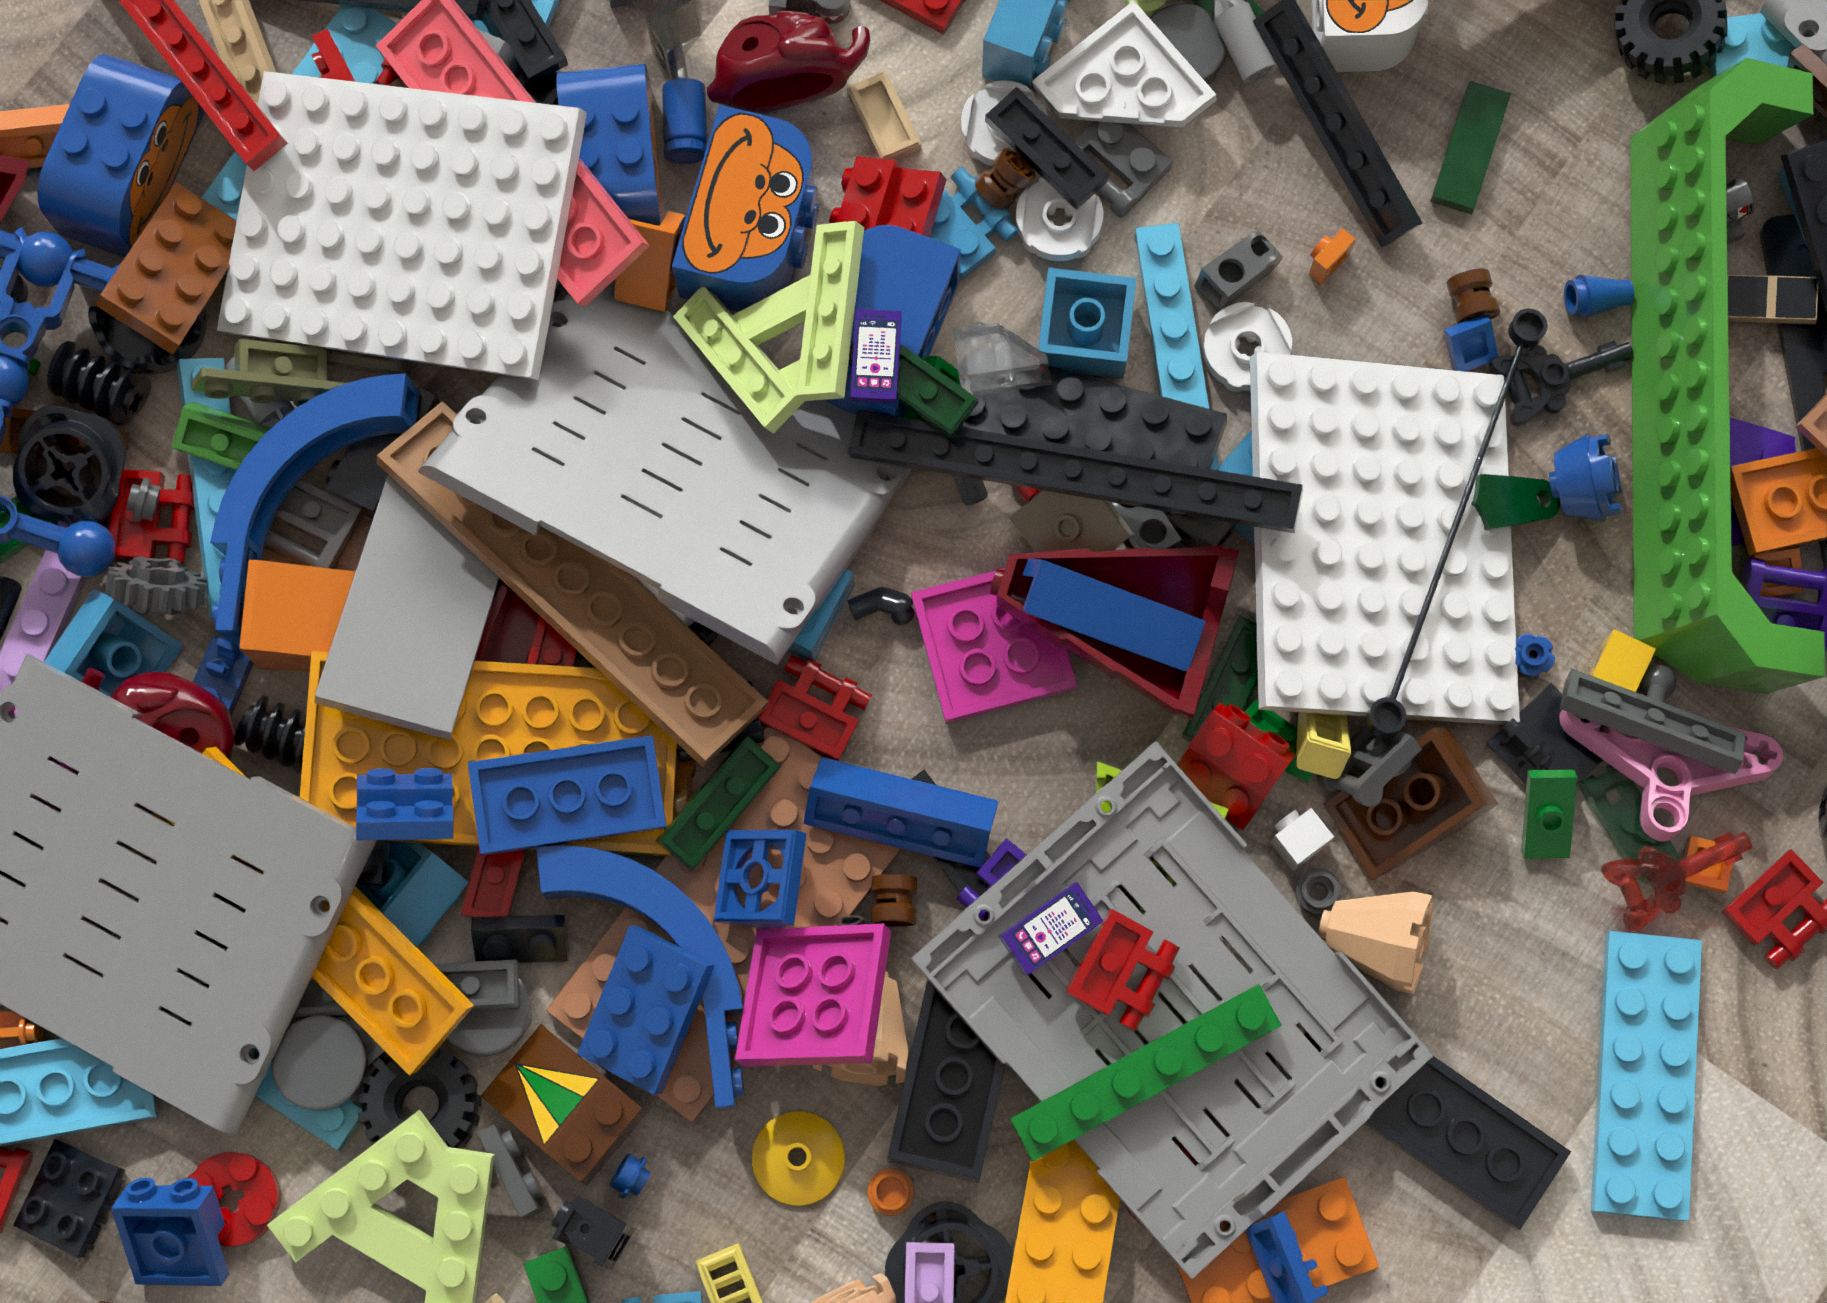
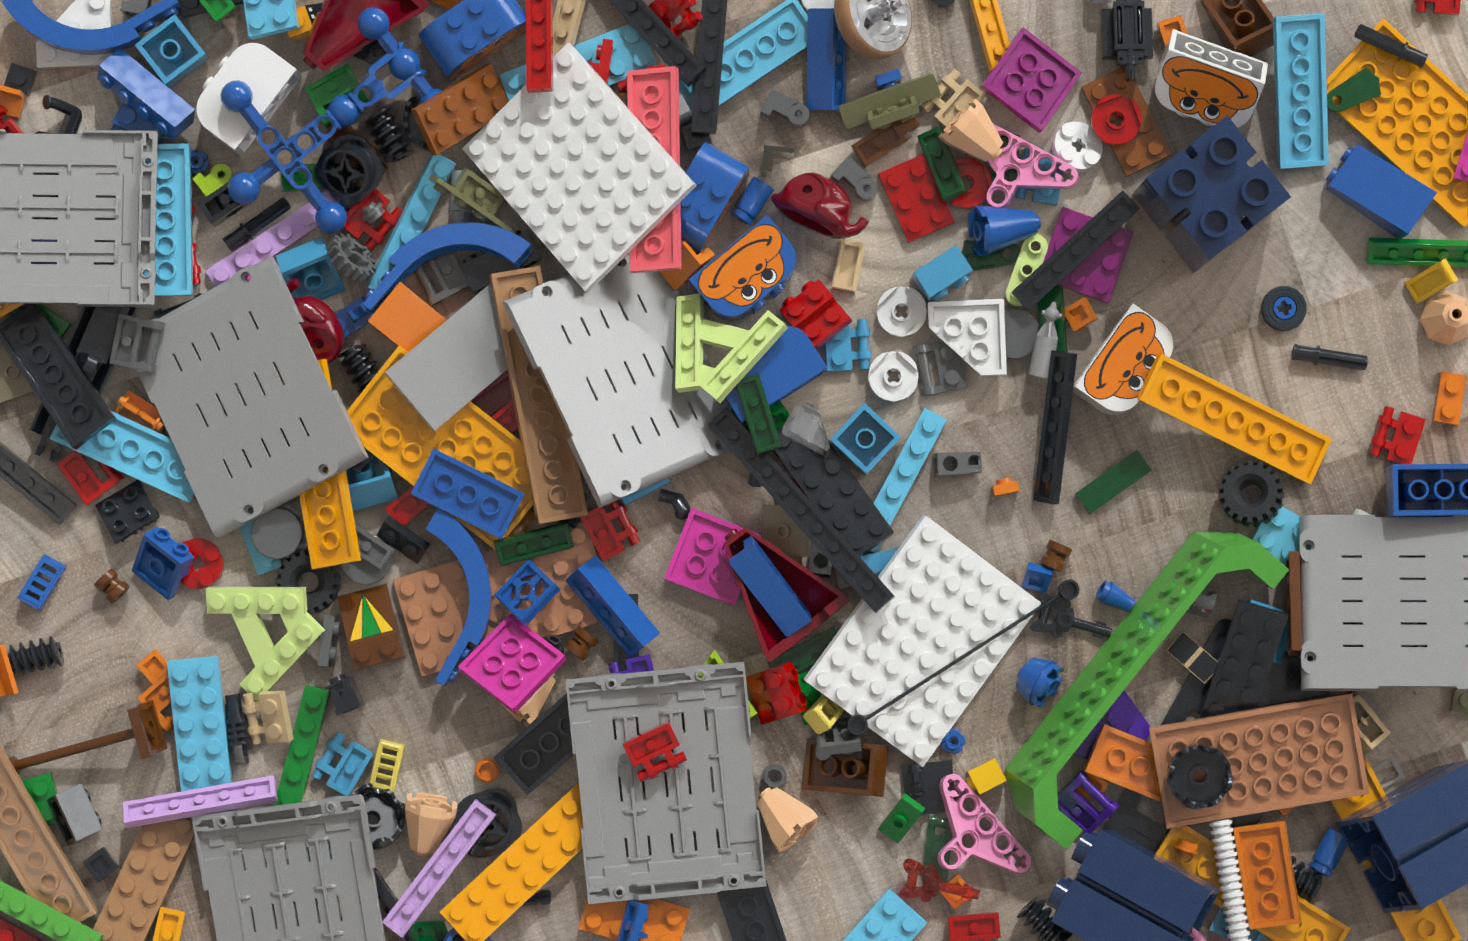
camera: 30 degrees right, 10 degrees up
(216, 435) = (428, 205): bright green slope -> none
(404, 805) = (390, 451): blue plate -> none
(630, 1176) = (378, 680): blue plate -> none
(645, 1010) = (435, 614): blue plate -> none
(801, 1183) = (471, 725): yellow dish -> none
(876, 356) = (748, 393): tile -> none
(1005, 179) = (879, 341): reddish brown wheel -> none
(1046, 148) = (909, 341): black plate -> none
(1050, 928) = (635, 711): tile -> none
(1145, 1072) = (632, 802): green plate -> none
(1223, 338) = (945, 494): white plate -> none
(1300, 837) = (783, 747): white plate -> none
(1512, 500) = (995, 665): dark green piece -> none
(1653, 719) = (979, 811): dark grey plate -> none

